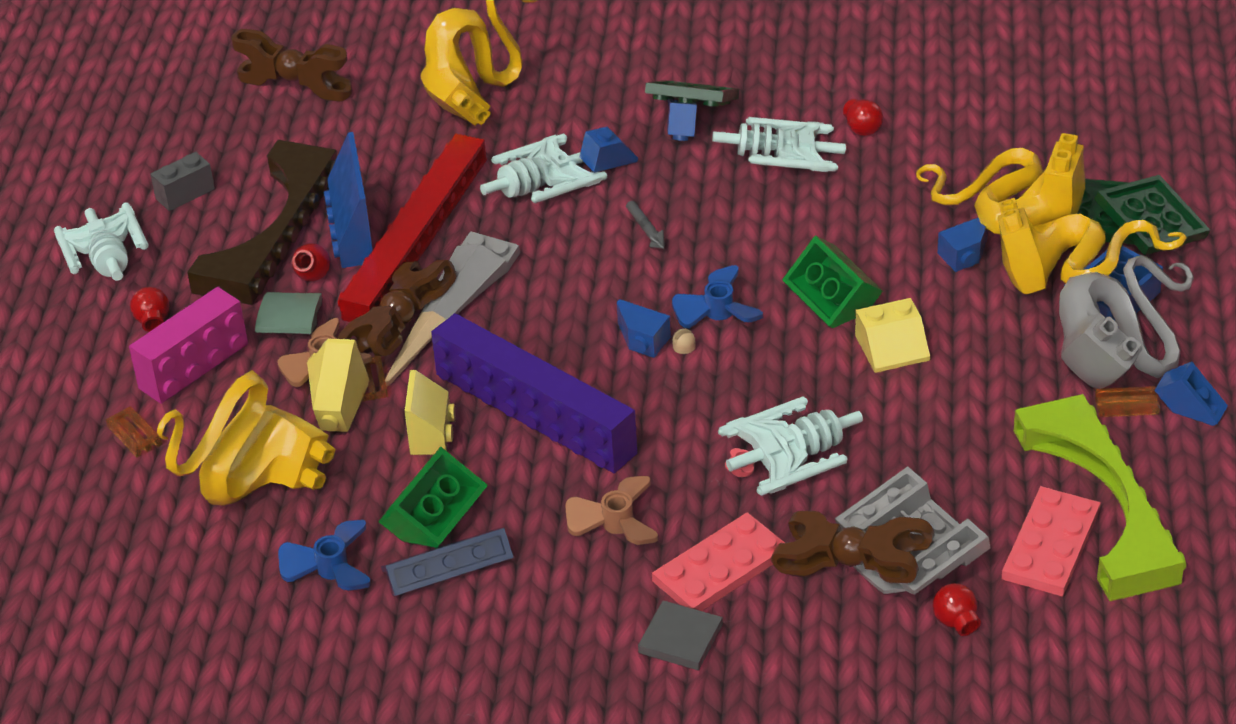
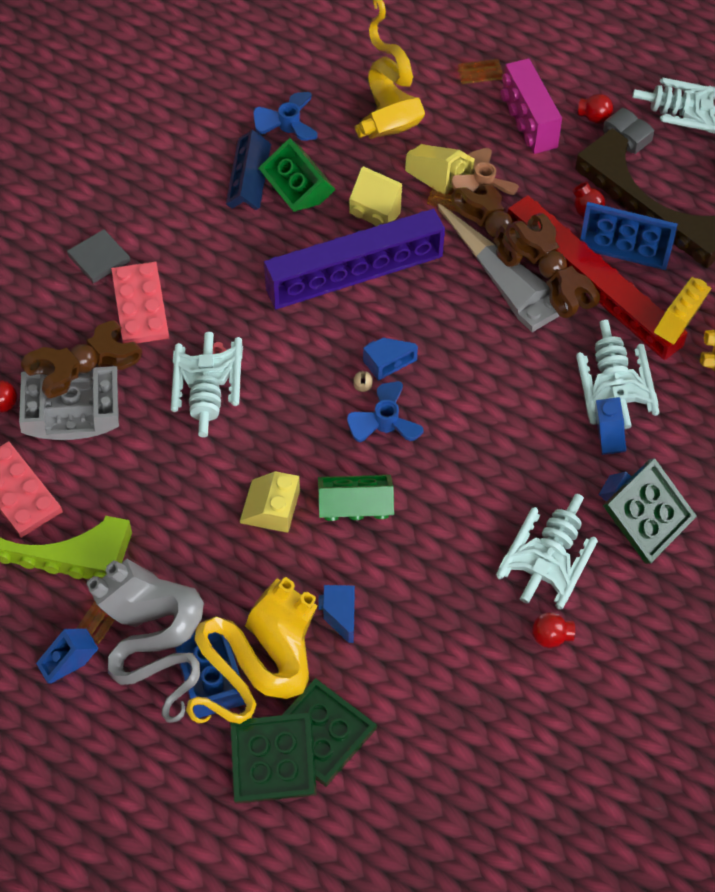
camera: 115 degrees right, 15 degrees up
(171, 271) = (634, 129): none -> dark grey brick
(288, 313) = (545, 177): sand green slope -> none
(436, 132) = (682, 310): none -> yellow brick
(437, 238) = (564, 282): none -> reddish brown piece
(613, 512) = (216, 265): nougat piece -> none
(656, 237) = (487, 416): dark grey piece -> none
(1049, 195) = (329, 675): yellow hips -> none

